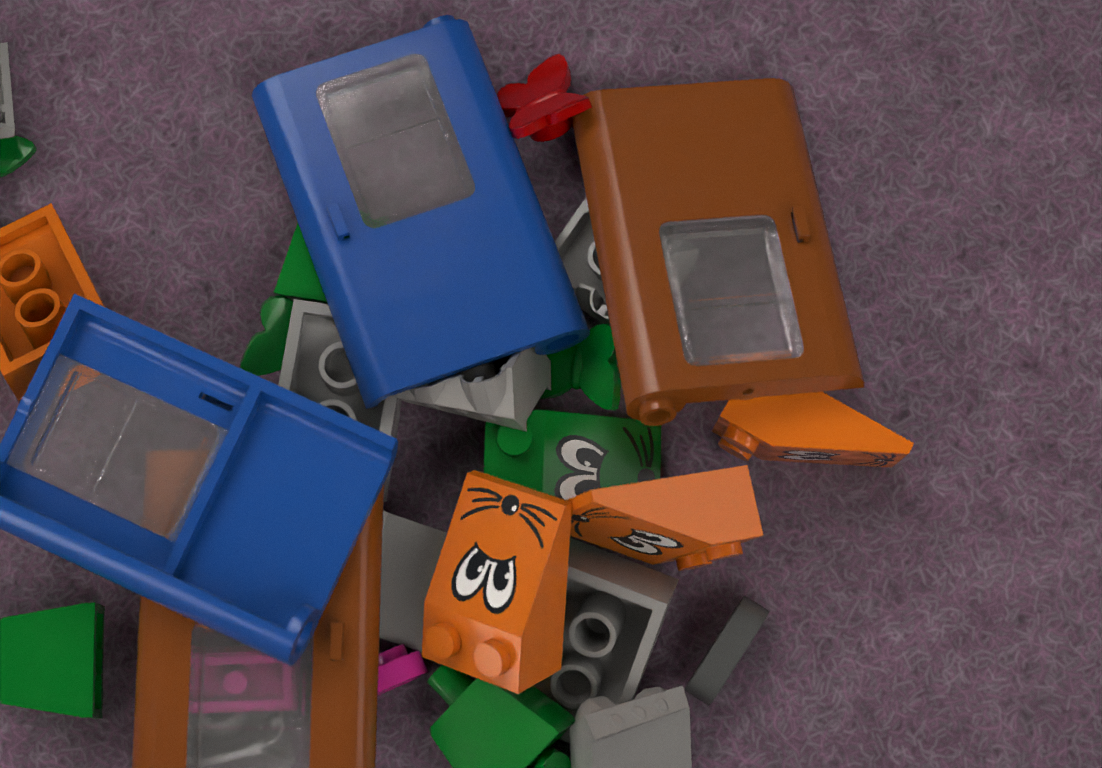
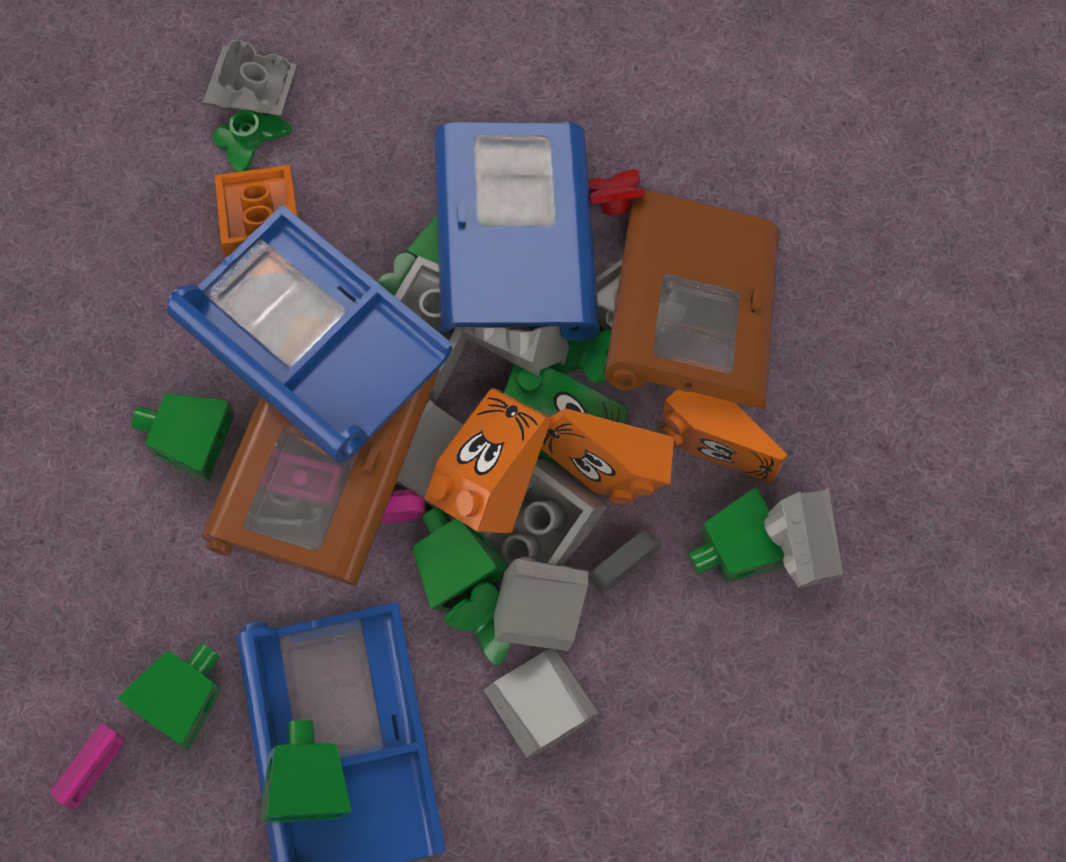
camera: 20 degrees right, 10 degrees down
(878, 570) = (738, 541): none -> green torso
(970, 545) = (807, 536): none -> light grey slope

